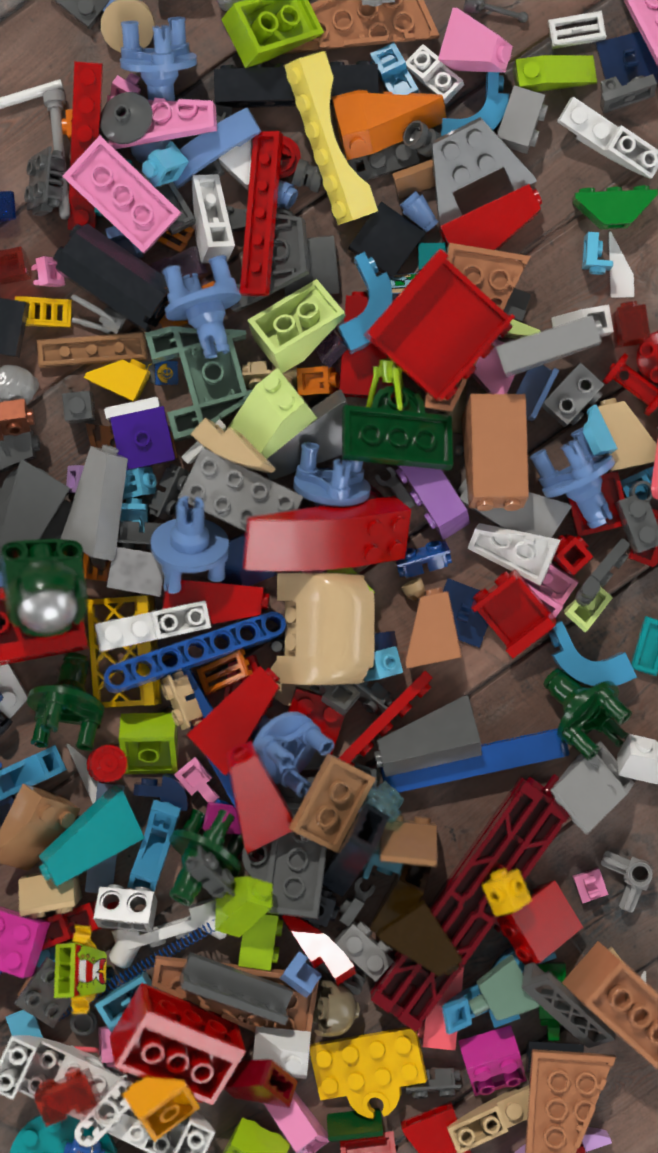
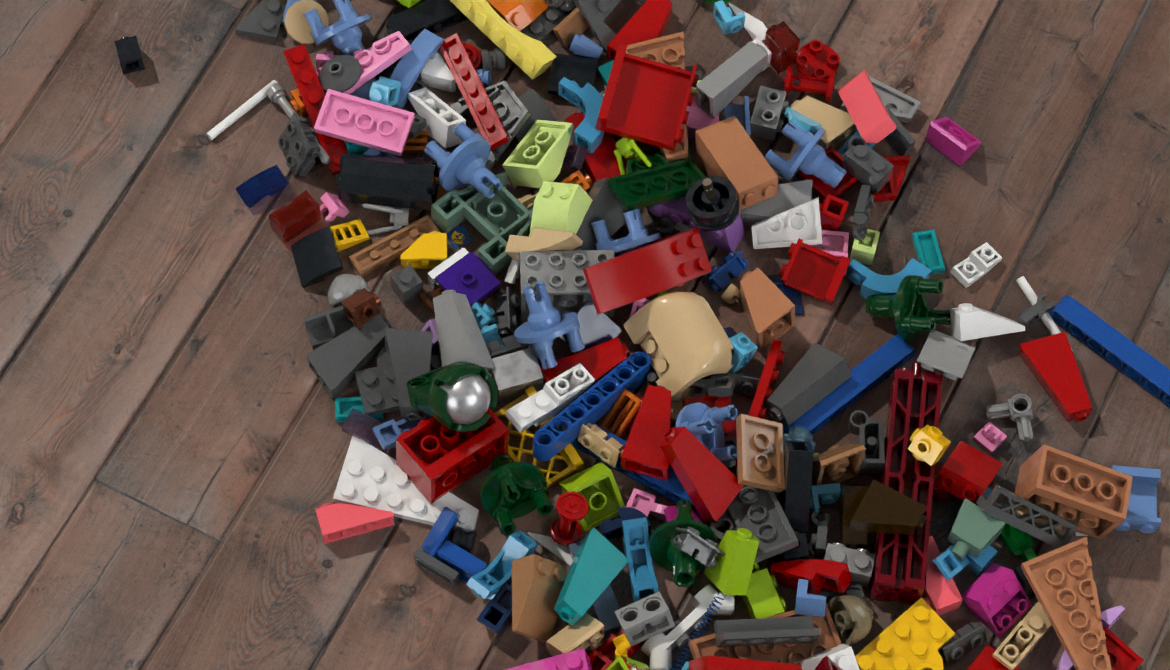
camera: 30 degrees left, 25 degrees down
(438, 495) = (712, 203): none -> black wheel
(459, 836) = (872, 437): none -> dark grey hinge

